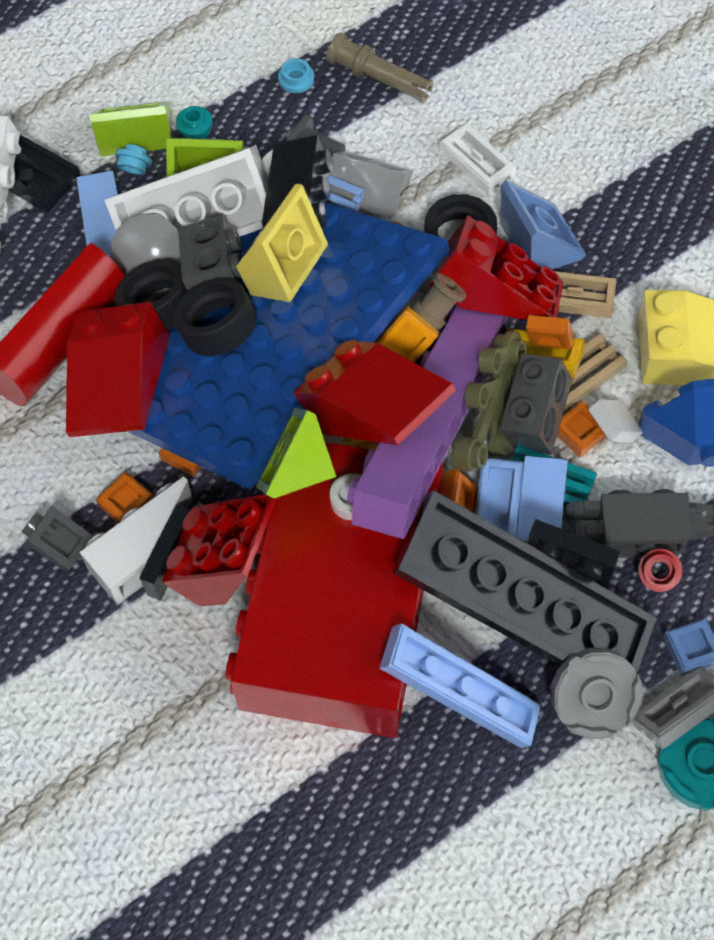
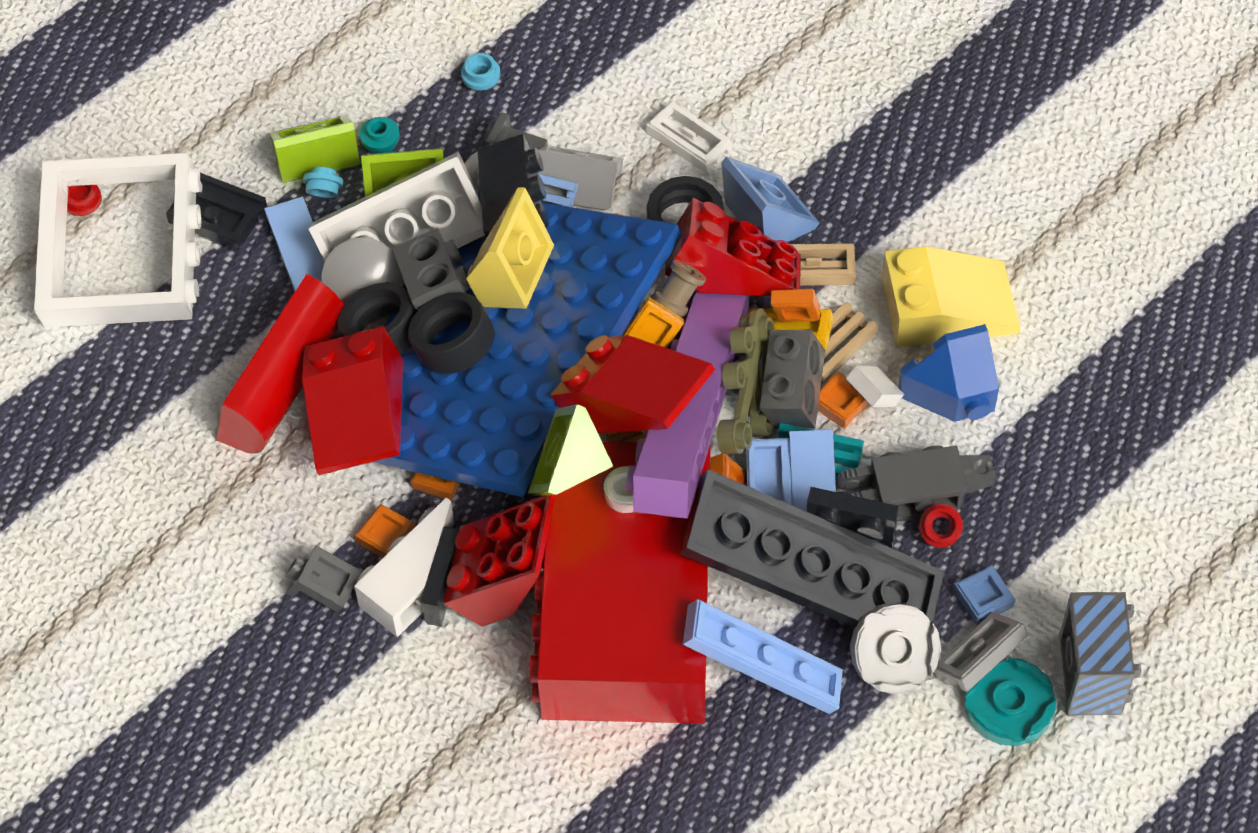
camera: 10 degrees left, 5 degrees down
(365, 62) = (552, 48): dark tan pin -> none

